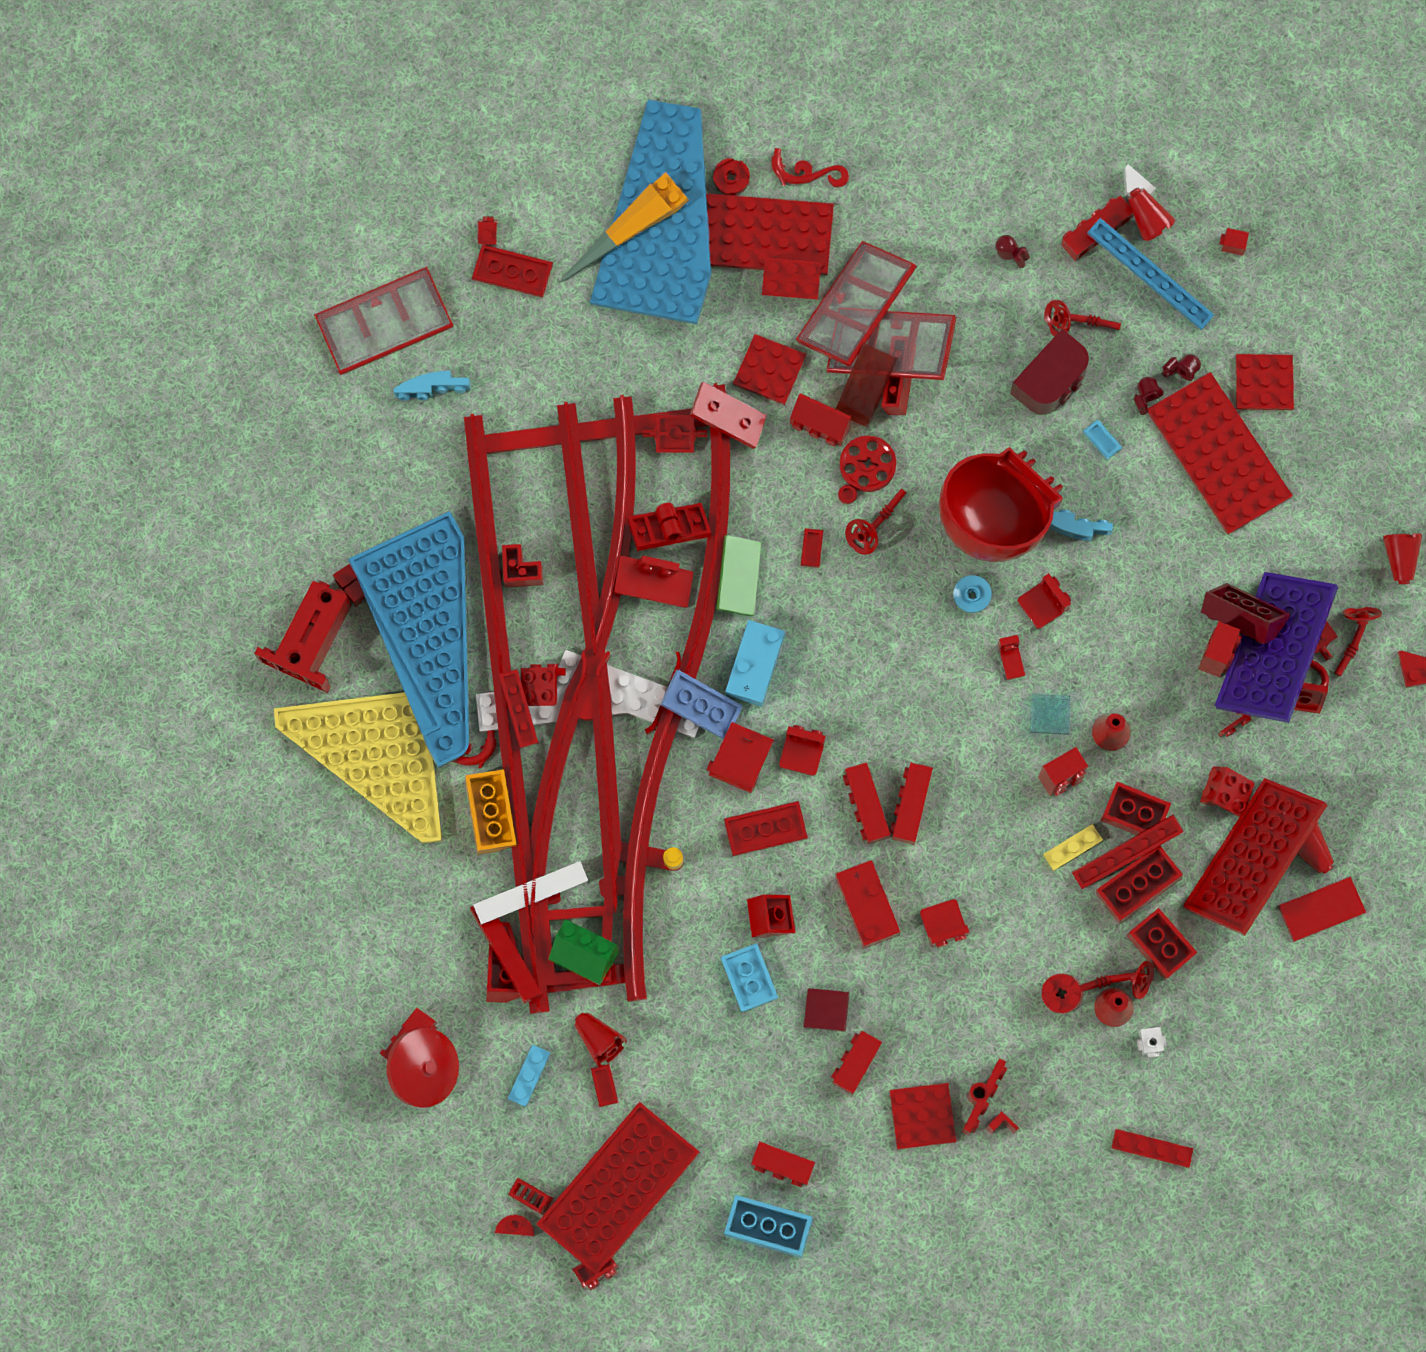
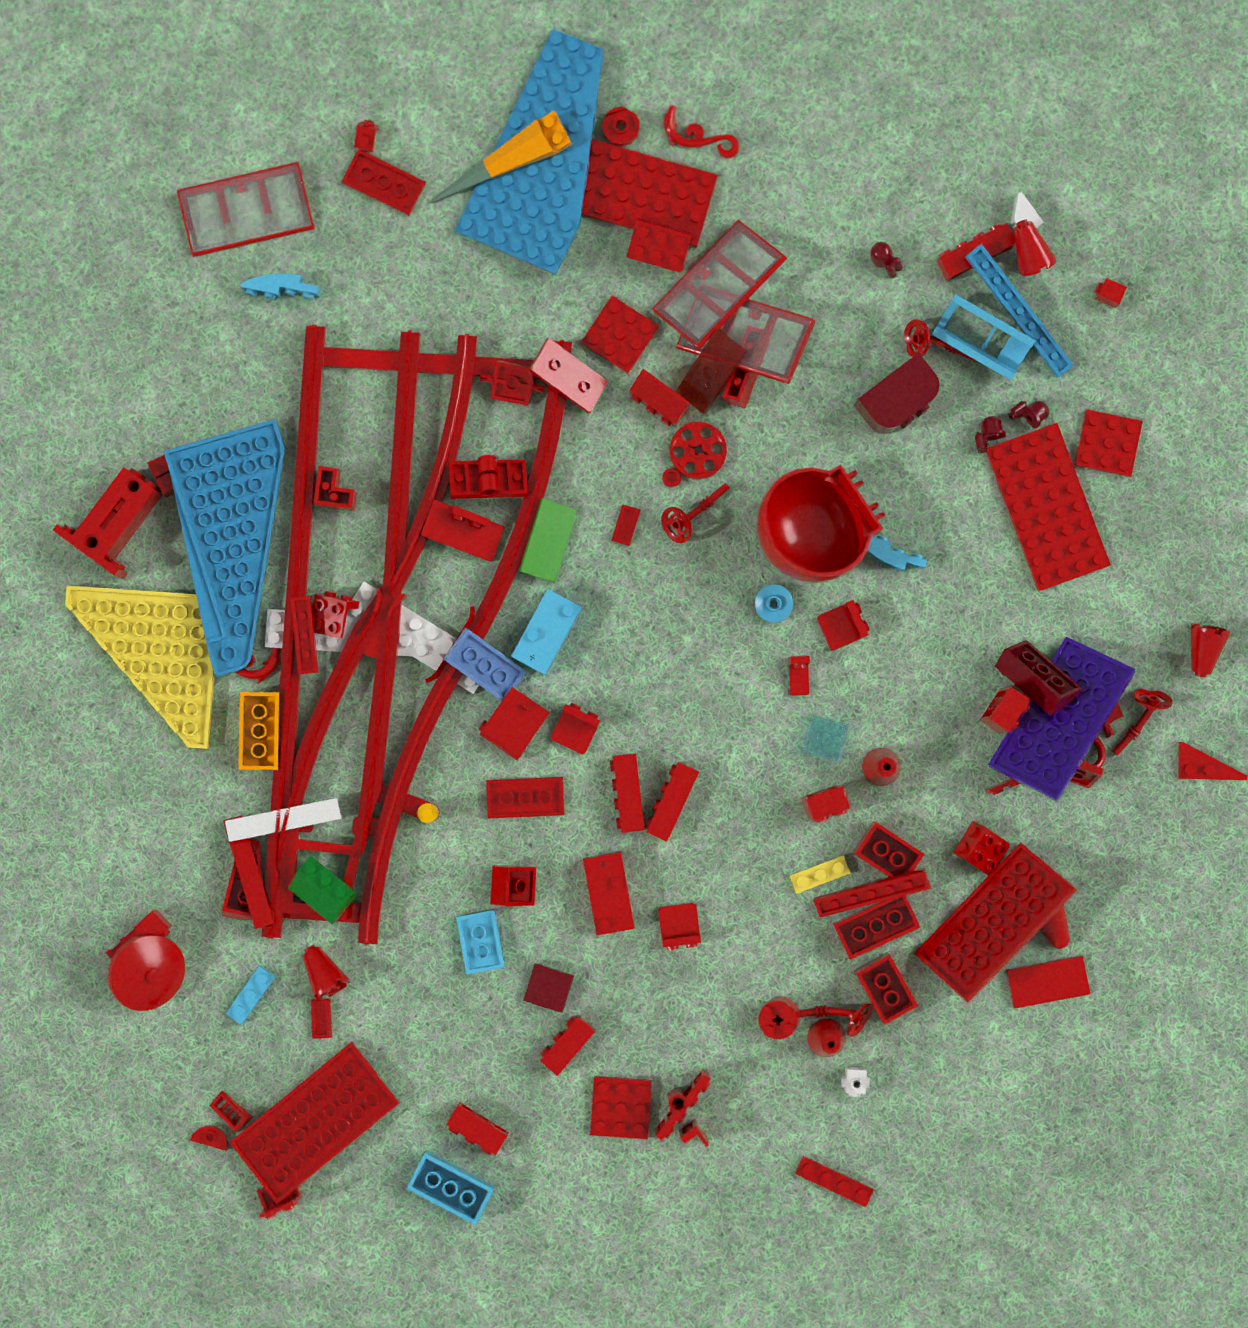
camera: 10 degrees right, 10 degrees up
(1102, 439) = (935, 470): medium azure tile -> none
(1152, 315) = (1012, 352): none -> medium azure piece

